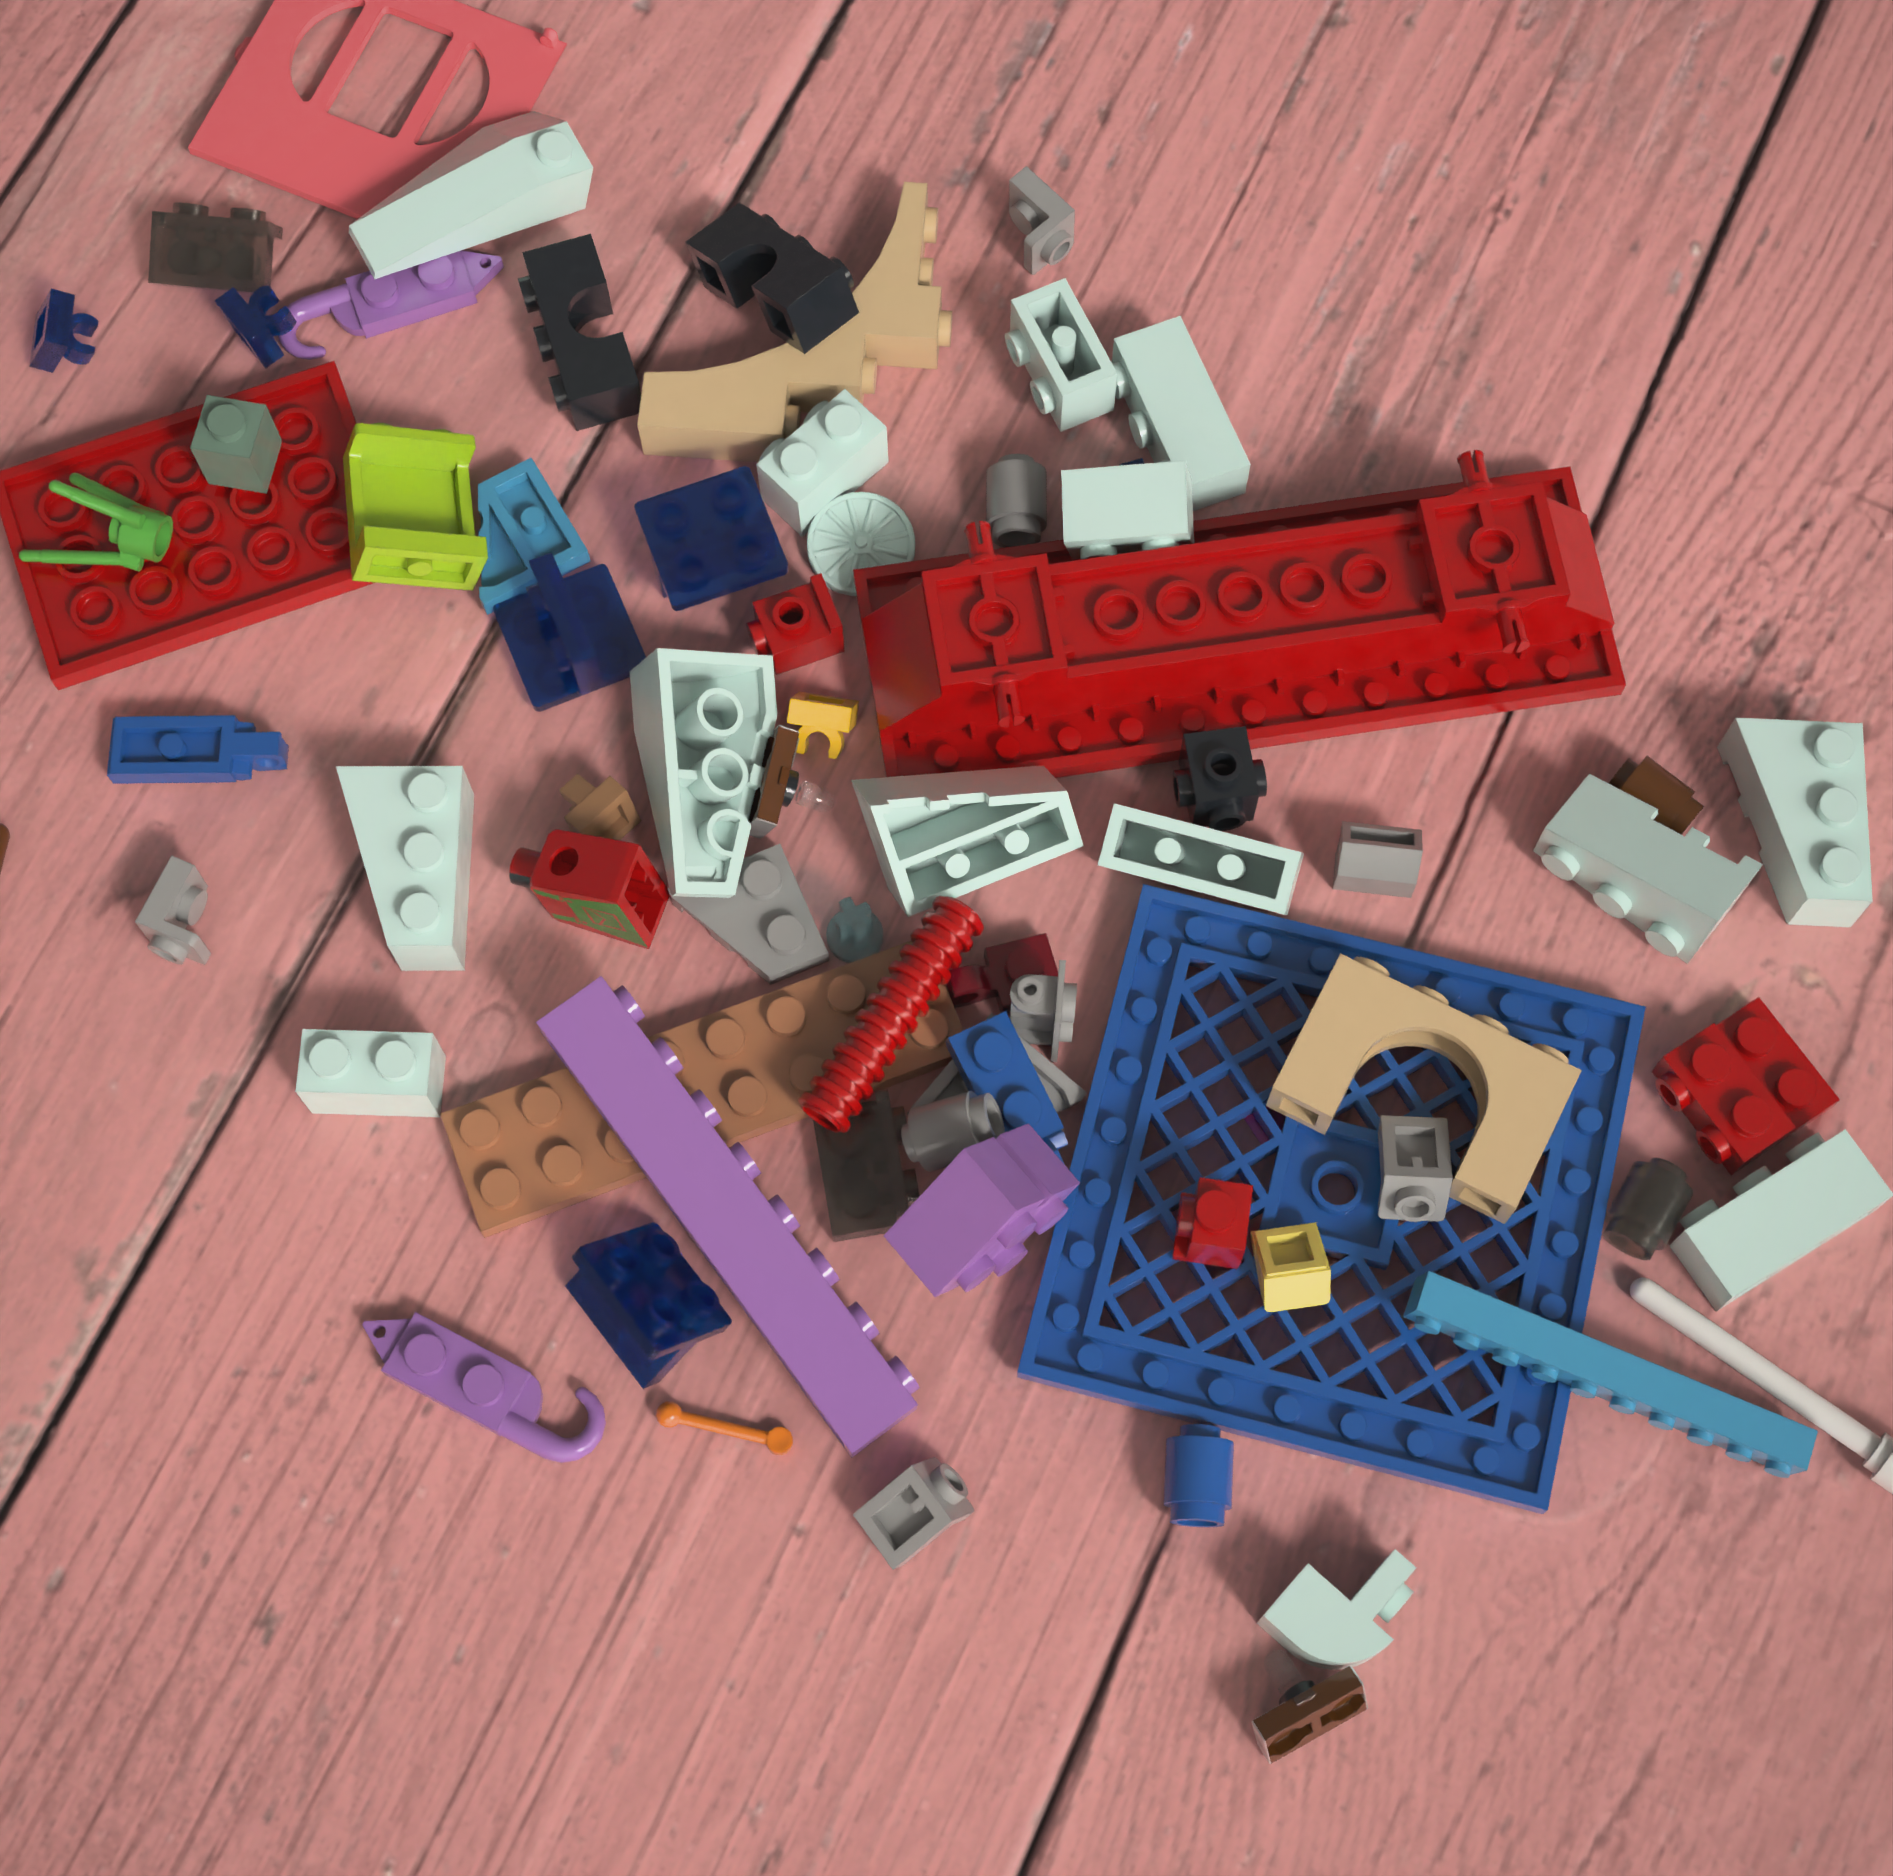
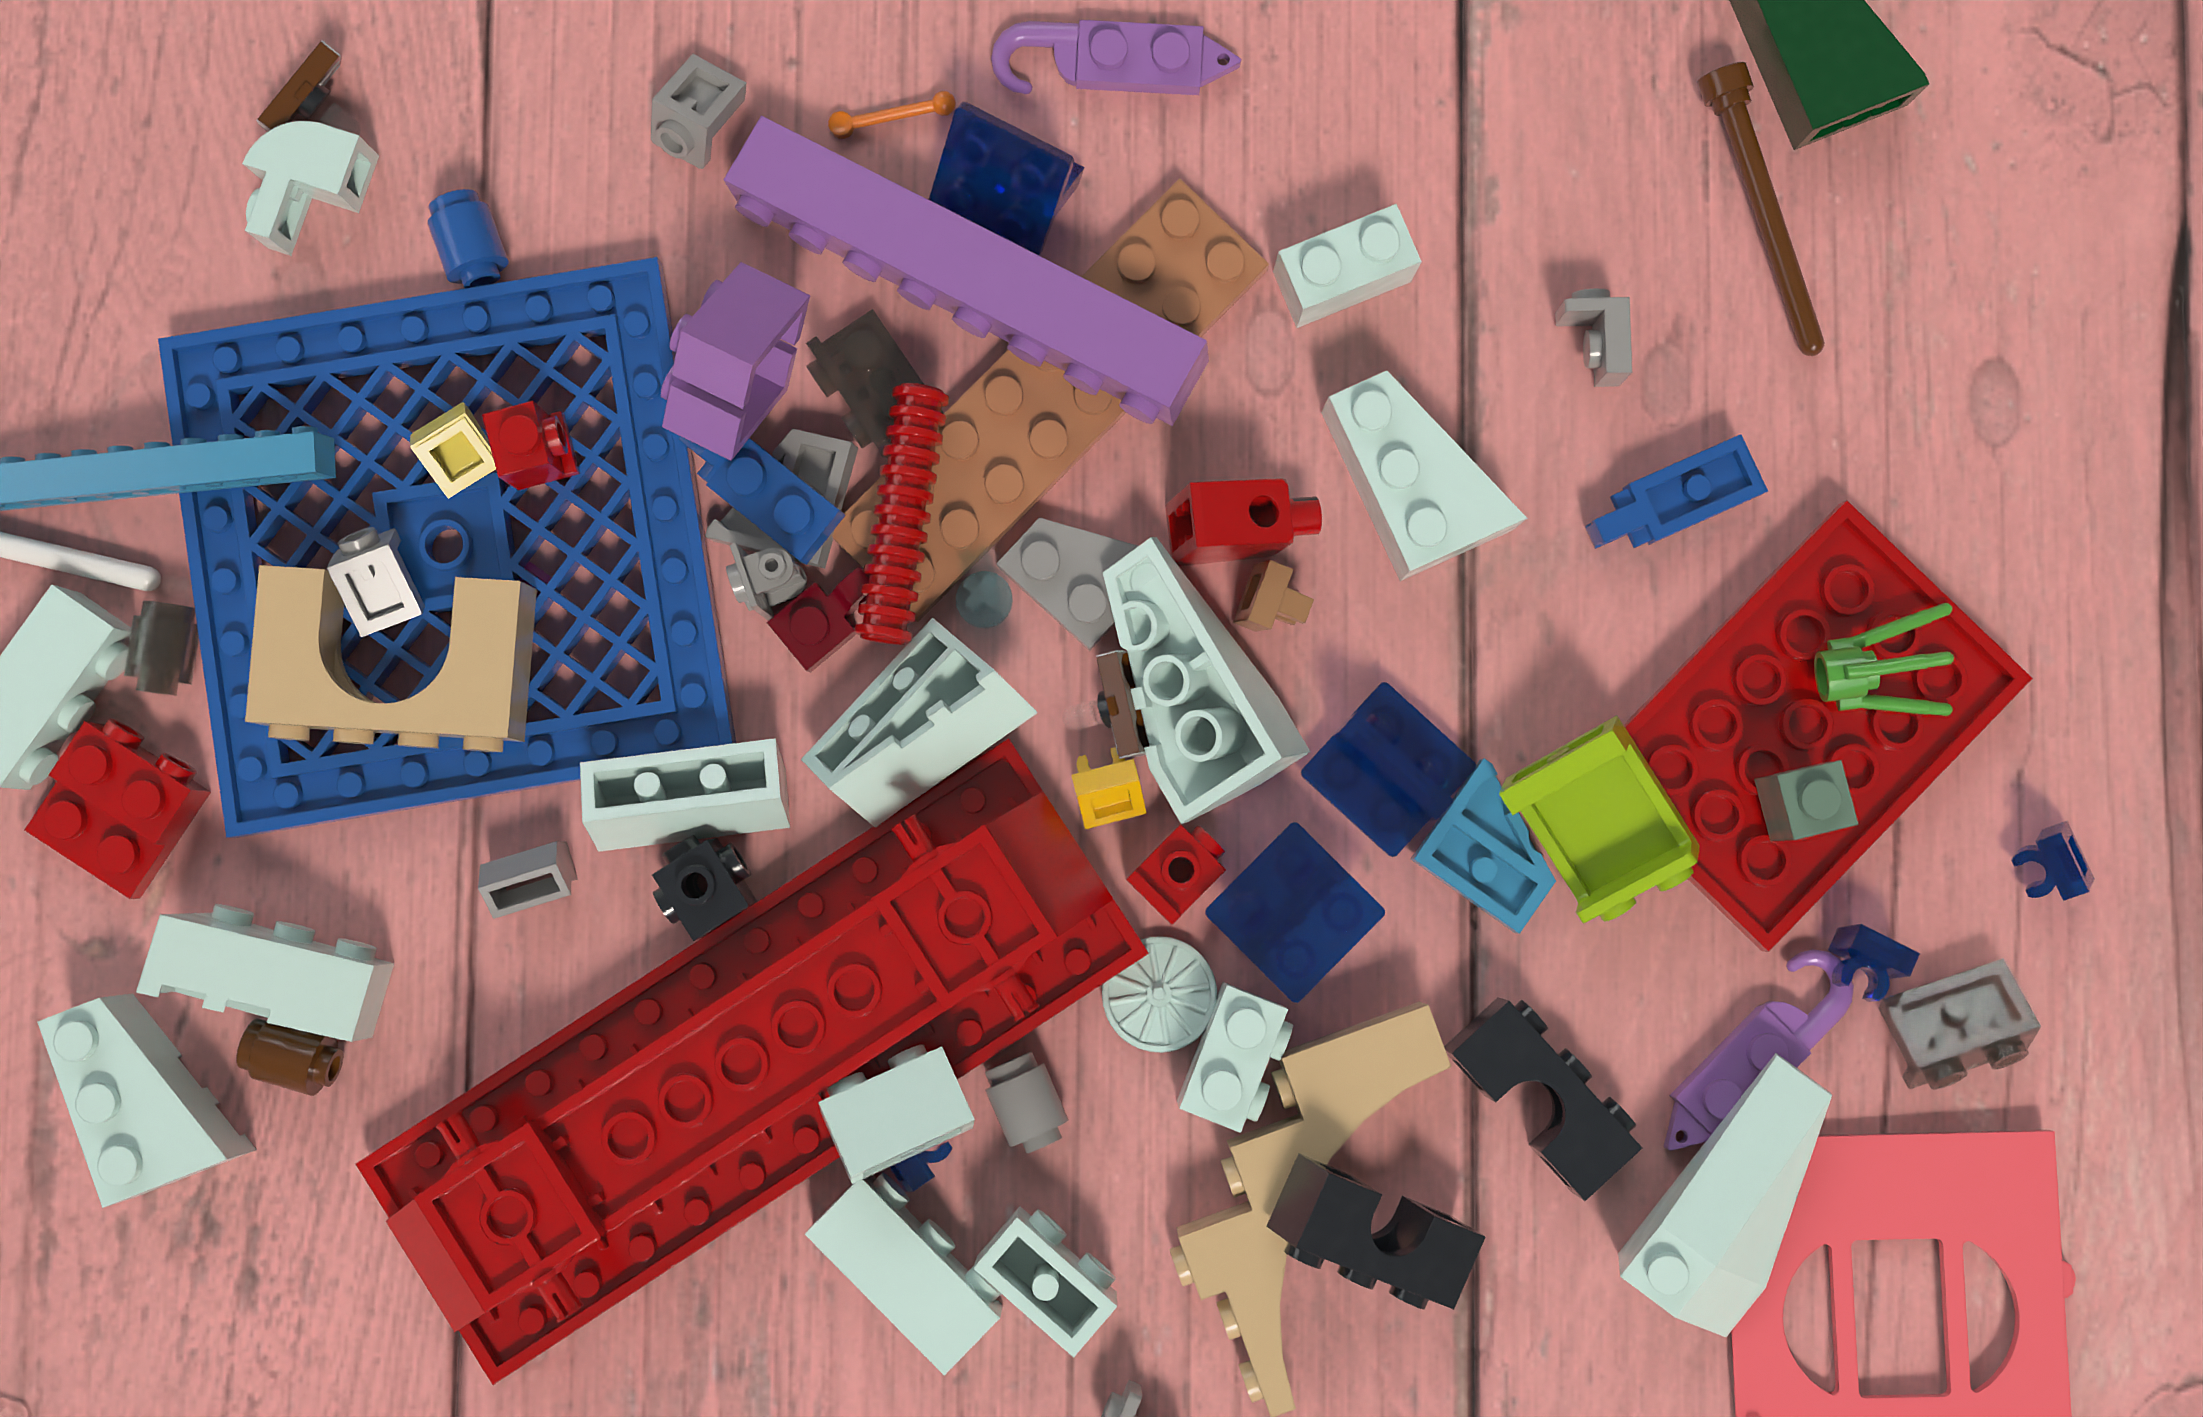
camera: 155 degrees right, 15 degrees up
(947, 1126) = (795, 425): light grey brick -> none

